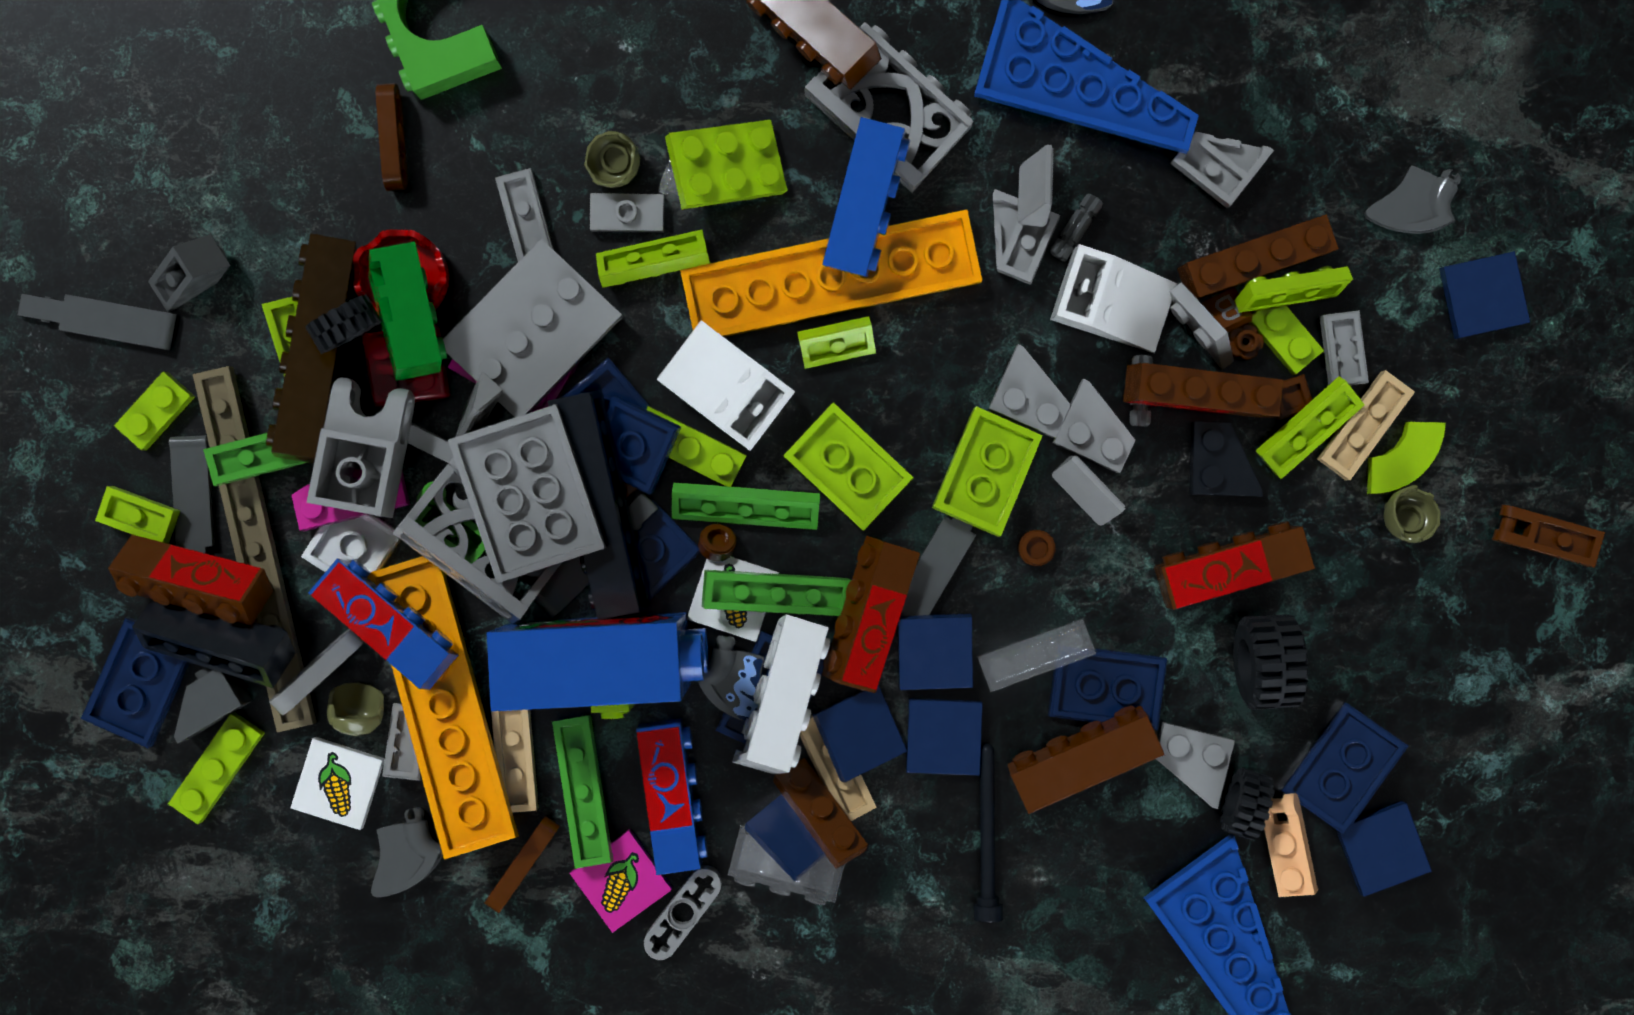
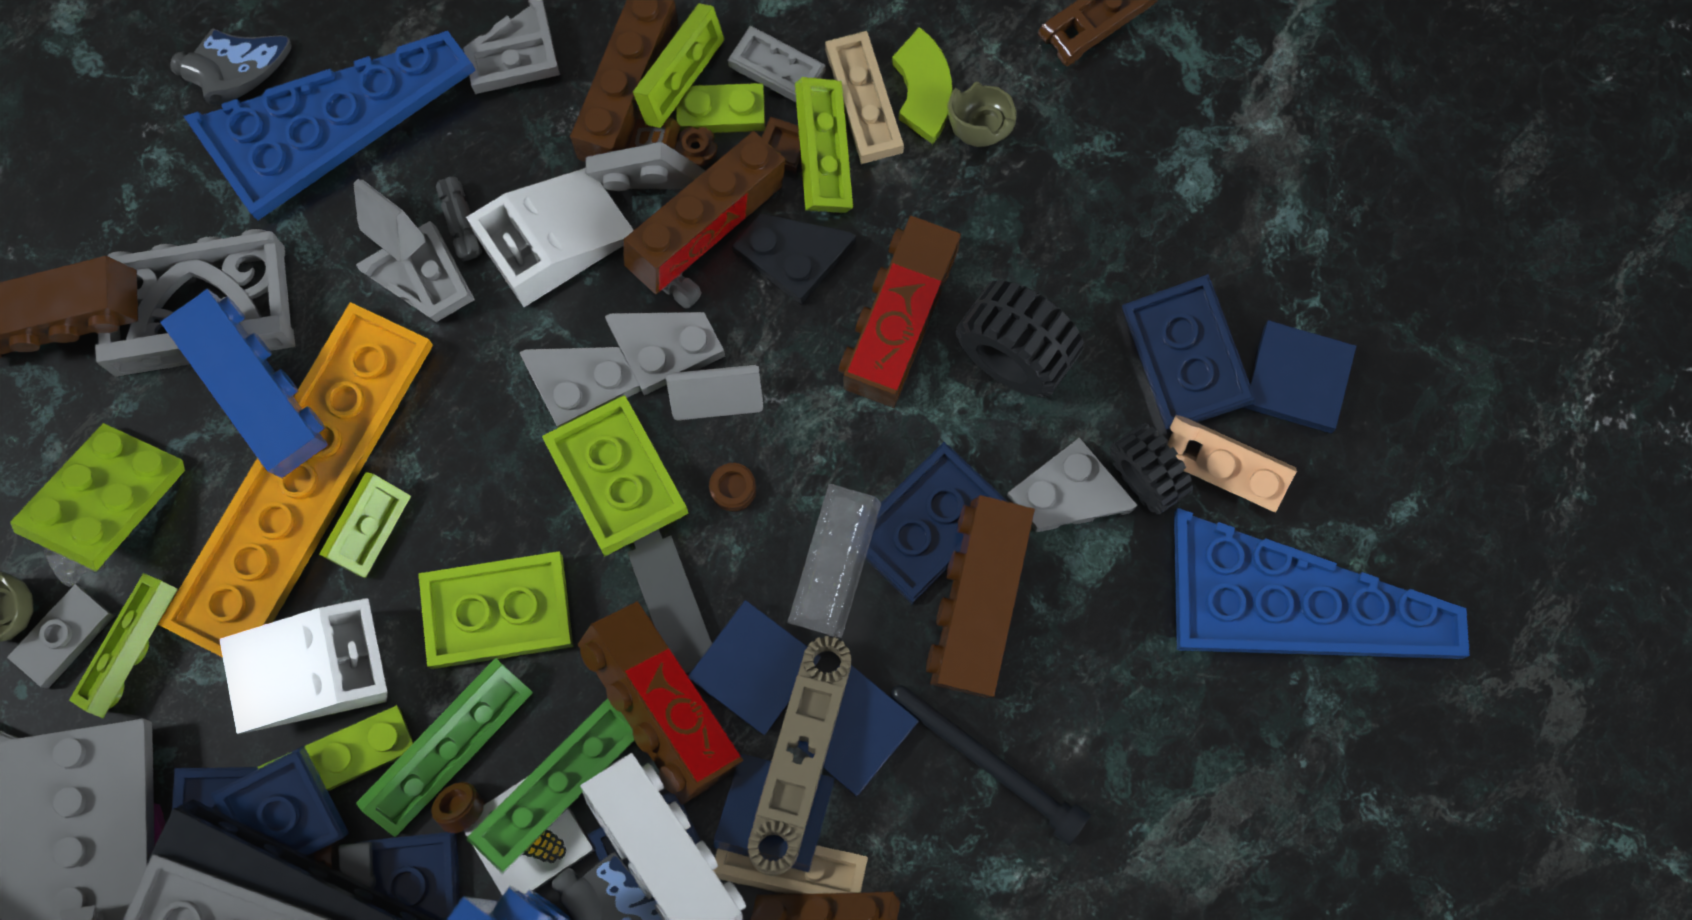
camera: 45 degrees left, 15 degrees down
(881, 736) = (789, 785): none -> dark tan piece

